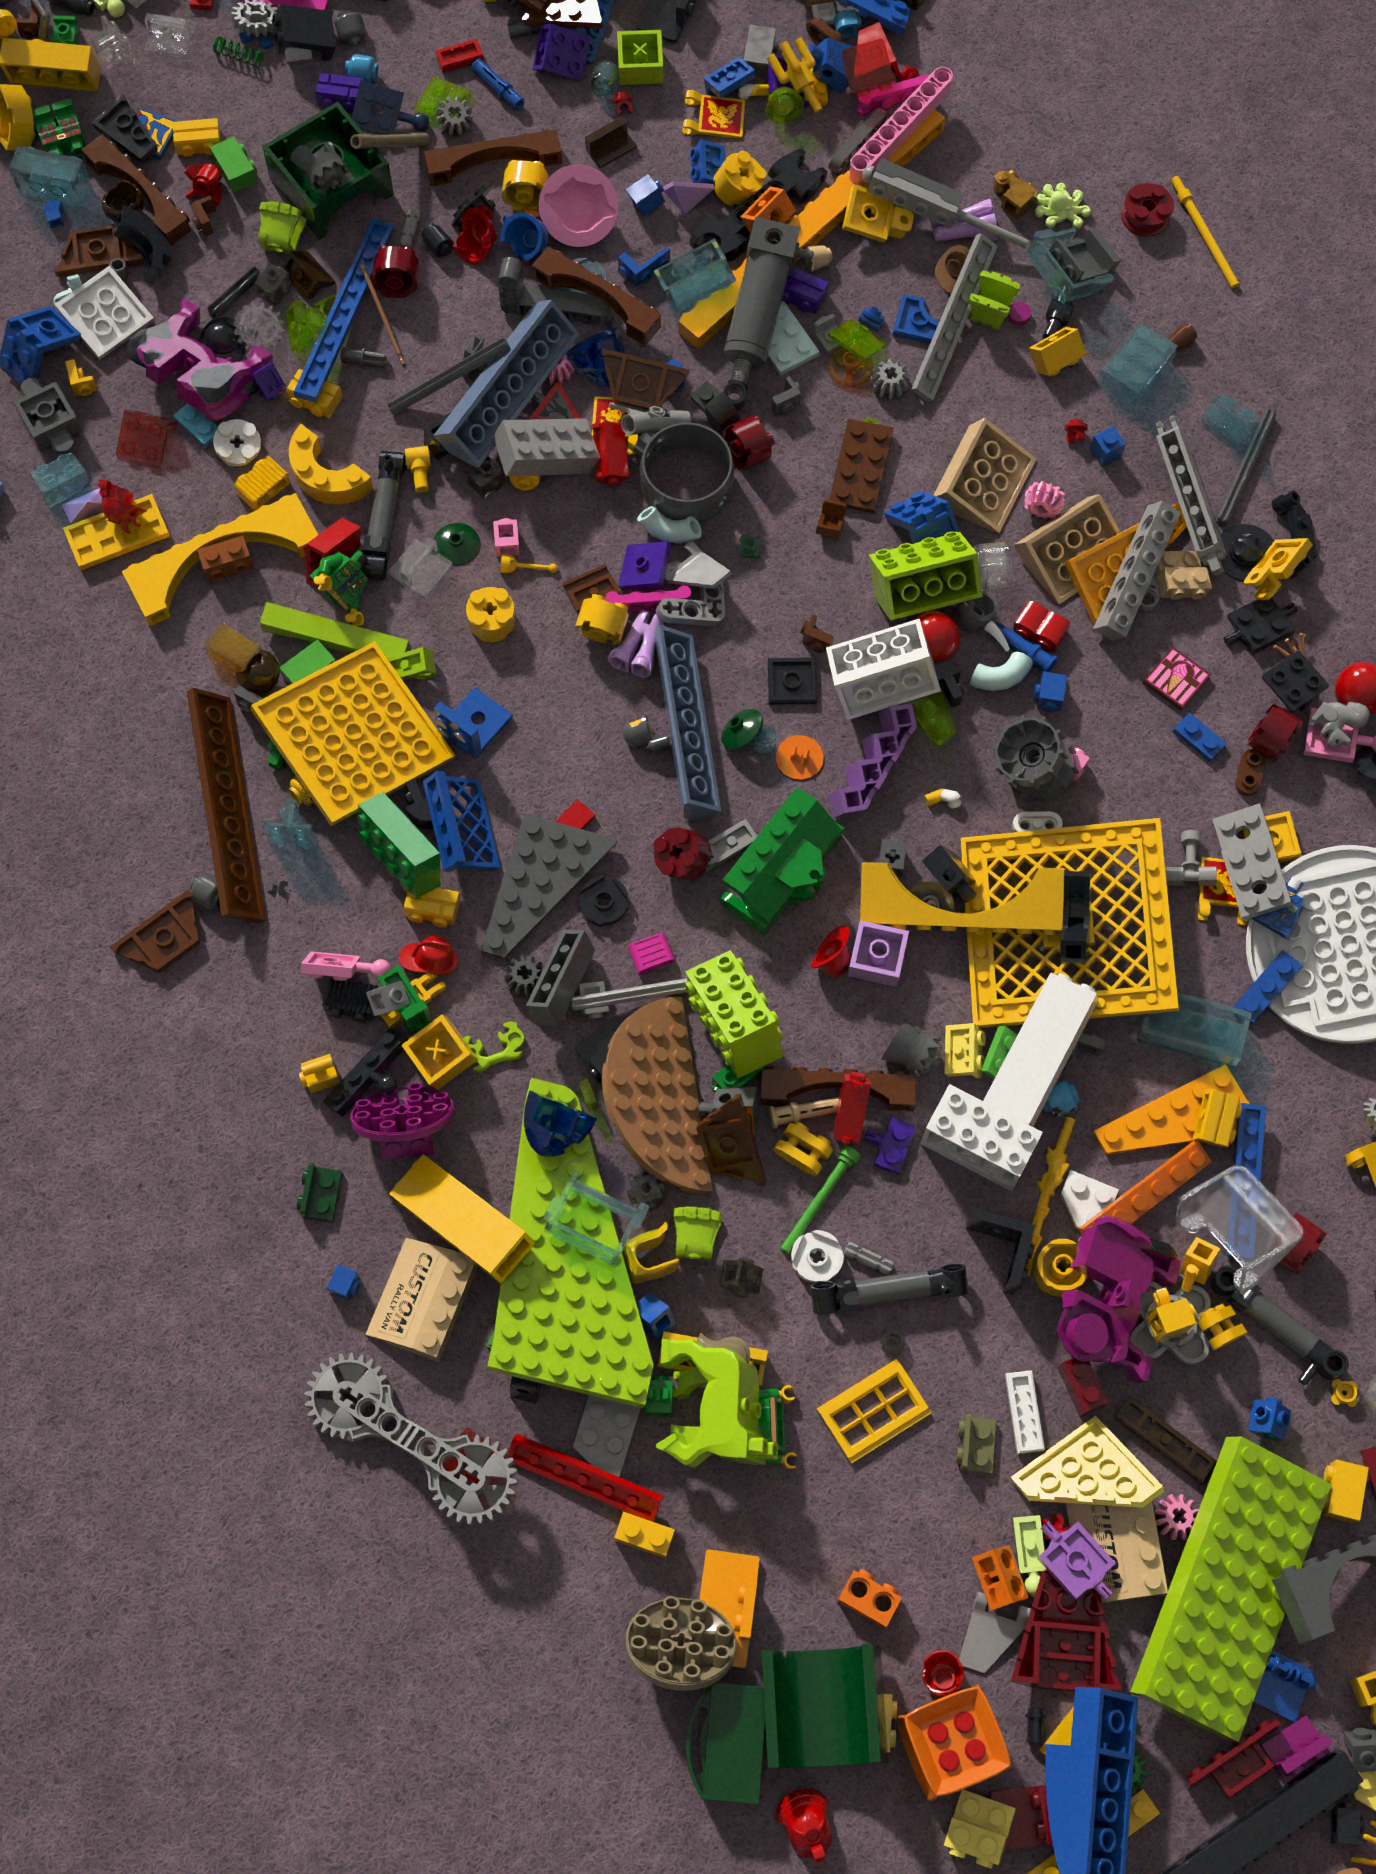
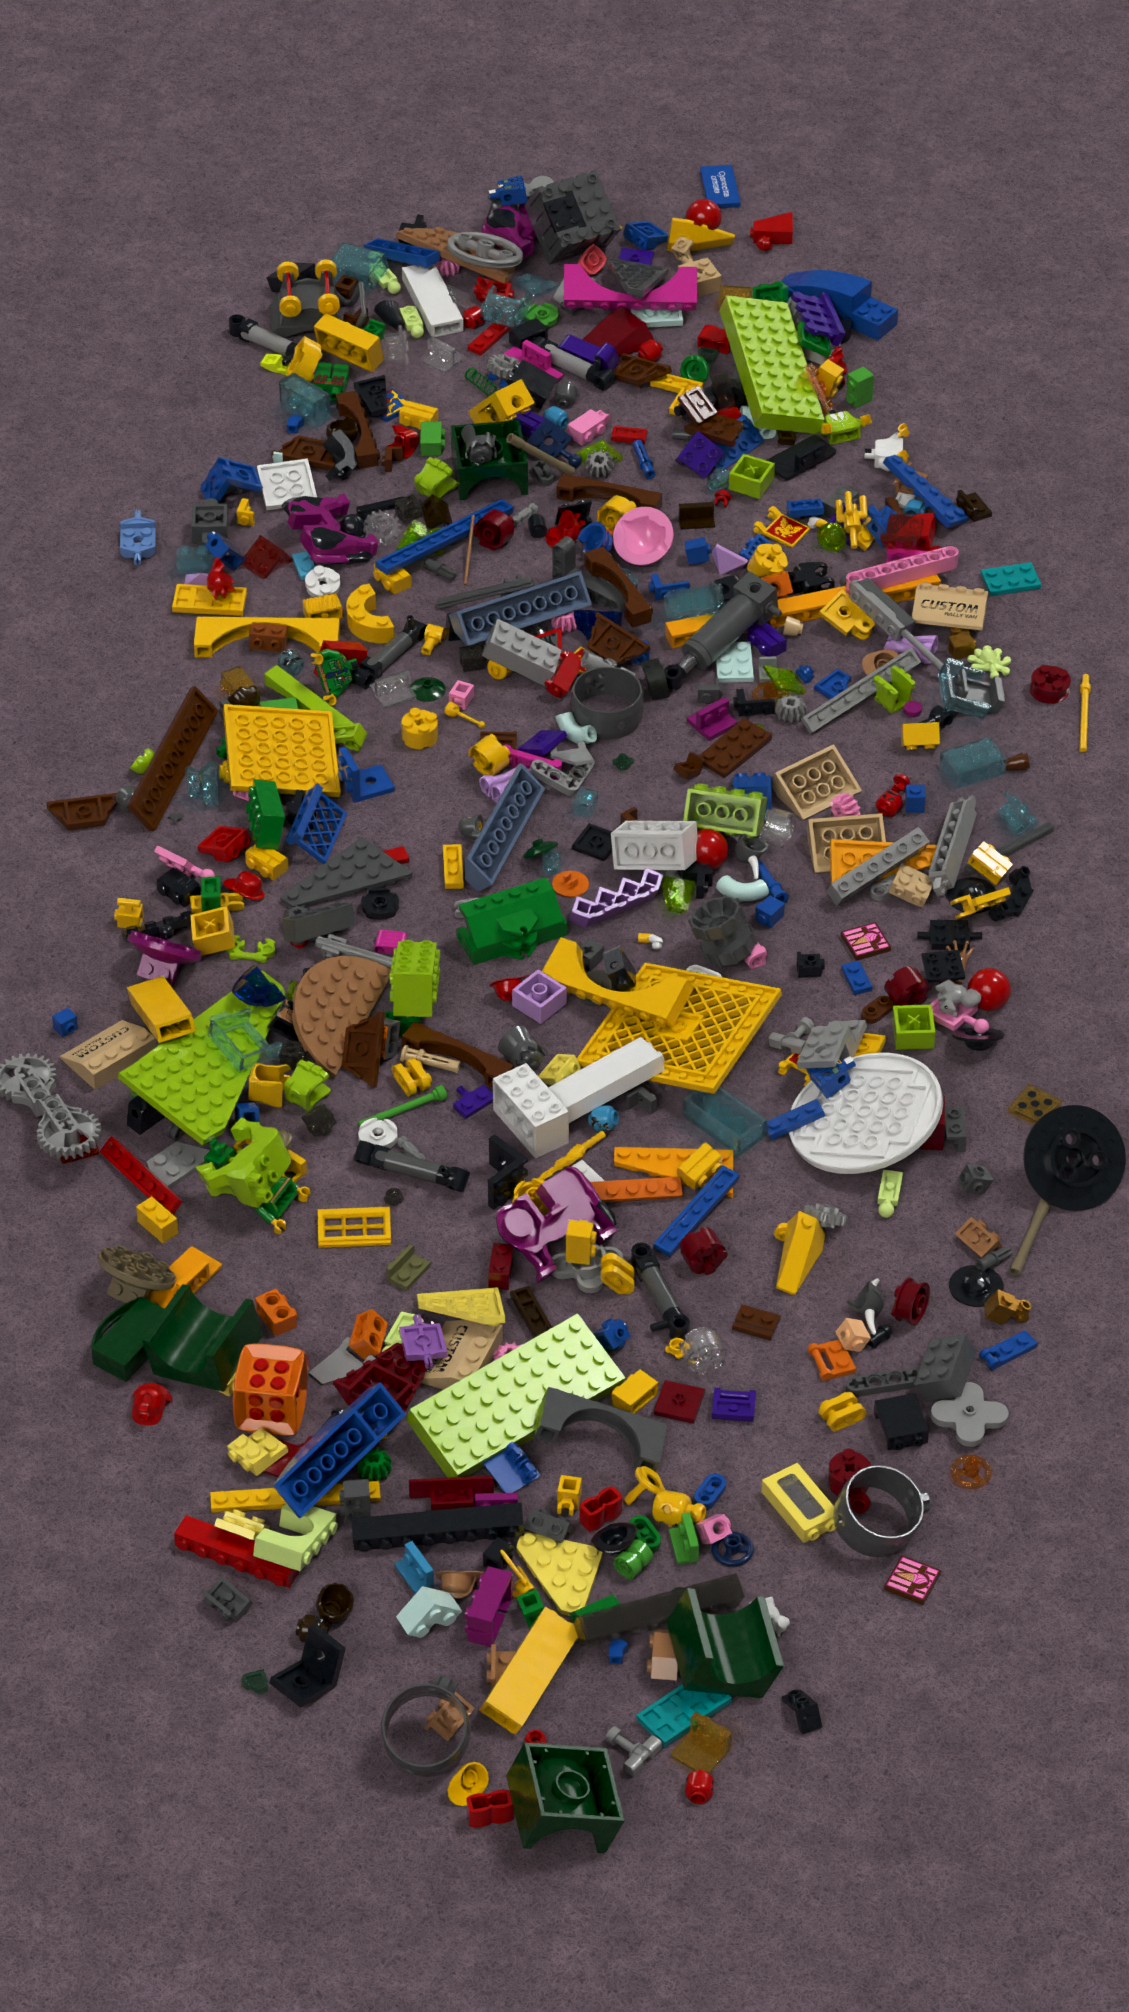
camera: 30 degrees right, 25 degrees down
(93, 453) = (219, 546): none -> blue torso
(119, 267) = (314, 464): dark grey hinge -> none
(191, 825) = (142, 762): none -> lime hair
(269, 381) = (366, 556): dark purple bracket -> none
(273, 582) = (291, 660): none -> clear light blue head
(302, 87) = (500, 404): none -> yellow plate
(319, 1193) = (83, 974): dark green bracket -> none
(366, 902) = (225, 843): none -> red plate
(388, 998) = (197, 885): light grey bracket -> none
(397, 153) = (539, 474): none -> dark grey beam
(405, 65) = (588, 426): none -> bright pink brick
(606, 1143) = (282, 1021): none -> black torso
(653, 800) = (453, 866): none -> yellow plate
(682, 853) = (447, 893): dark red brick -> none
(747, 630) = (585, 802): none -> clear light blue brick
(748, 442) = (662, 703): dark red brick -> none
(812, 436) = (713, 719): none -> magenta bracket
(830, 397) = (752, 707): none -> black bracket
(851, 1108) = (458, 1062): red brick -> none
(978, 151) = (950, 606): none -> tan slope
(1008, 75) = (1010, 579): none -> teal plate
(1024, 1412) = (452, 1266): white plate -> none
(1041, 626) = (791, 876): red brick -> none
(1076, 917) = (684, 1017): black arch -> none
(1081, 466) = (889, 803): none -> red head
(1136, 752) = (809, 965): none -> black brick
(1148, 1849) = (355, 1499): none -> dark grey brick
(1198, 1263) = (626, 1235): yellow brick -> none
(1243, 1220) = (666, 1218): clear windscreen -> none
(1248, 502) = (990, 863): none -> yellow brick
(1313, 784) = (913, 1027): none -> lime brick

